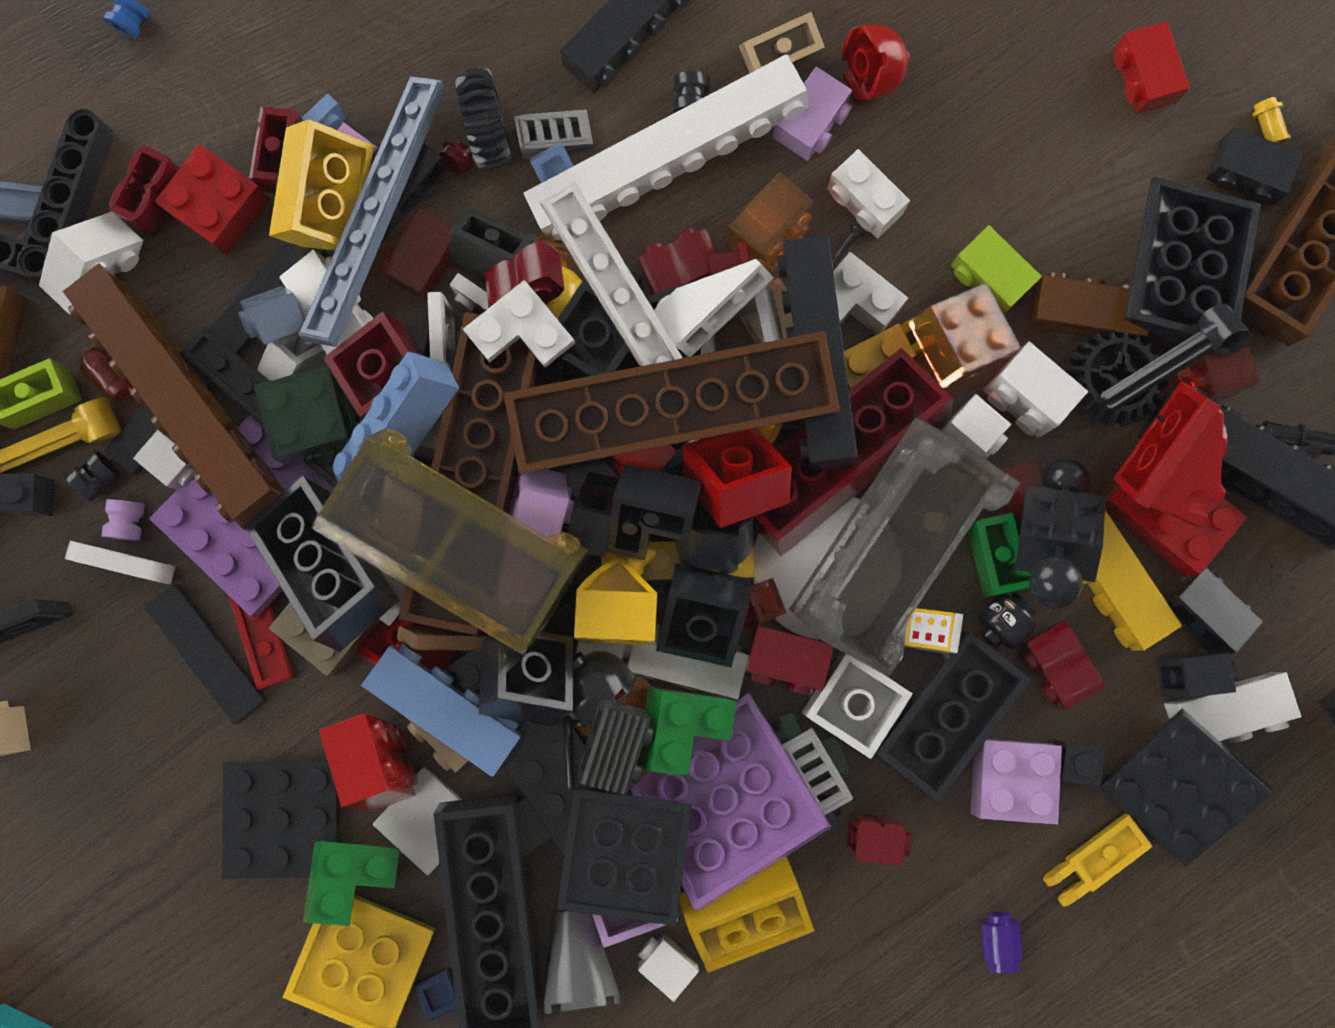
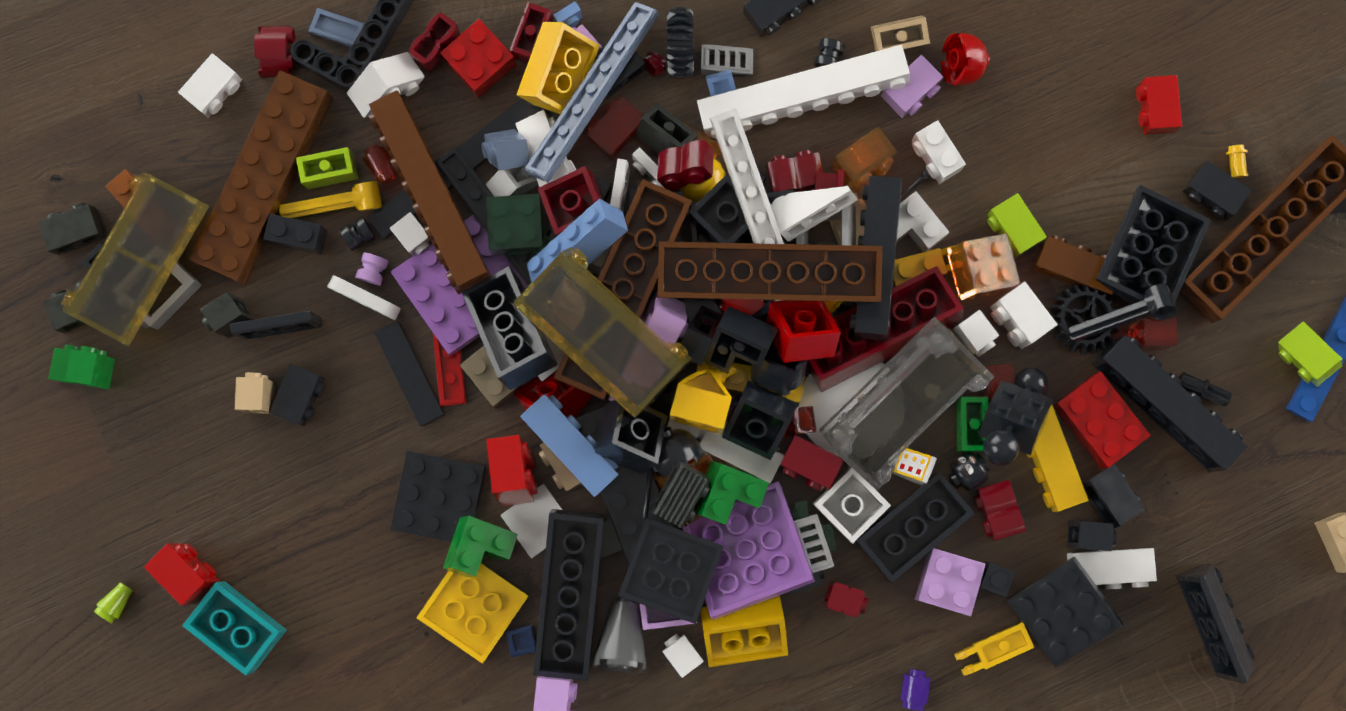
camera: 15 degrees right, 0 degrees up
(53, 719) = (298, 395): none -> black brick
(438, 639) = (576, 397): medium nougat tile -> none
(515, 317) = (677, 190): white plate -> none
(1179, 459) = (1106, 384): red piece -> none

